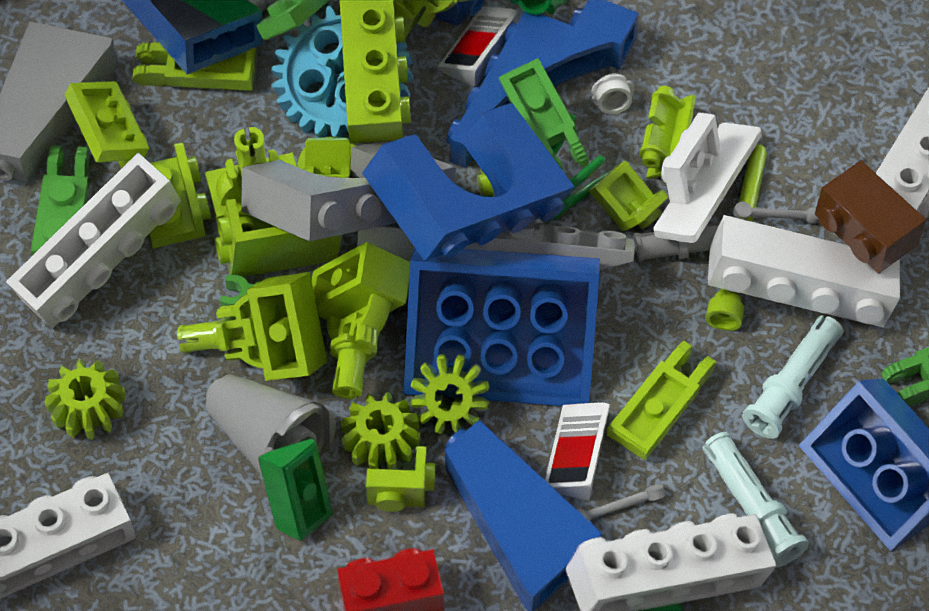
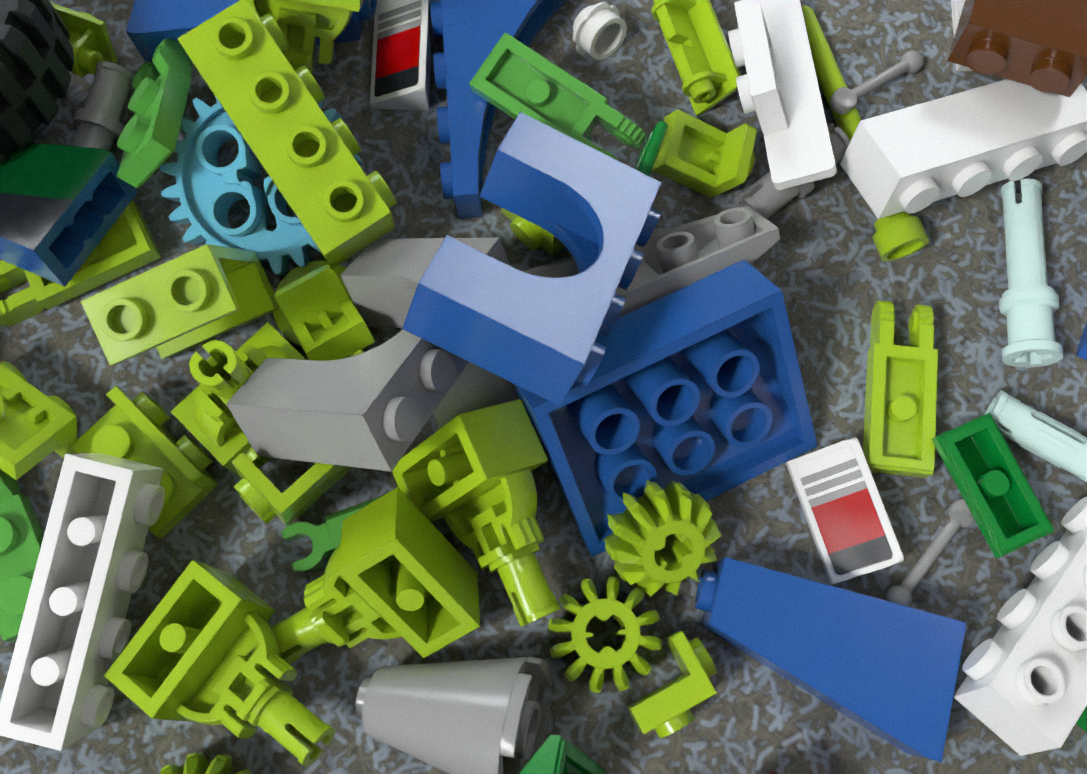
camera: 30 degrees left, 15 degrees up
(144, 313) = (211, 662): none -> lime brick
(256, 103) = (181, 303): none -> lime panel
(677, 477) = (993, 485): none -> green slope

